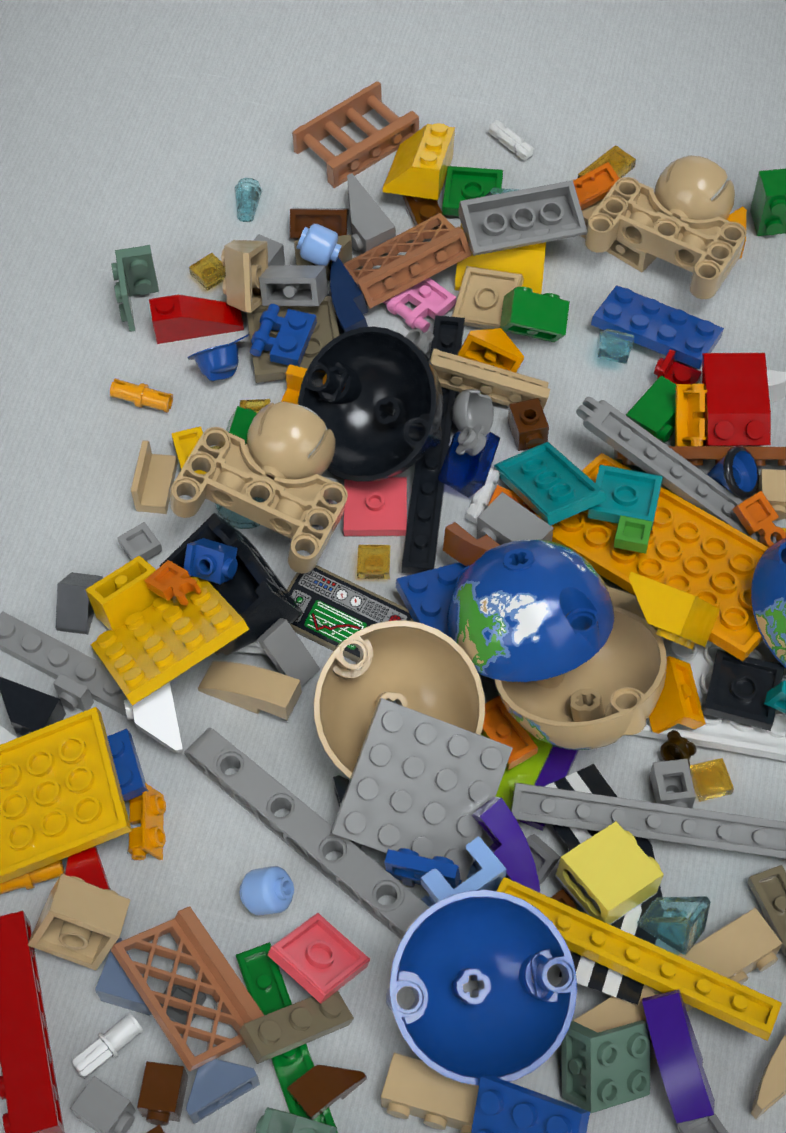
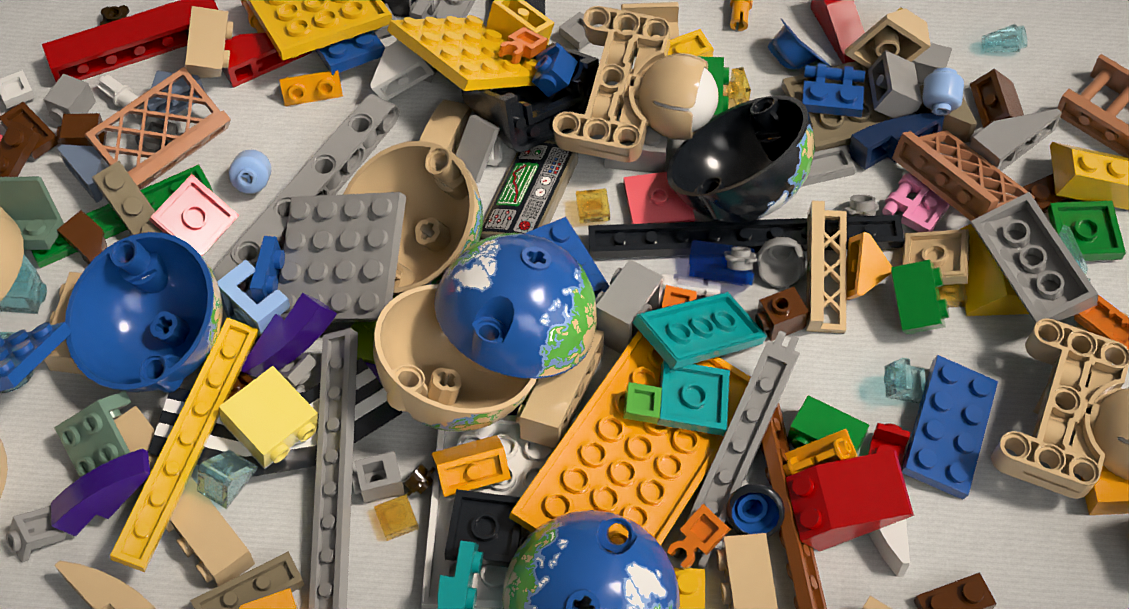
camera: 80 degrees right, 0 degrees up
(464, 546) = (601, 272): dark orange slope -> none
(674, 612) = (528, 420): yellow slope -> none

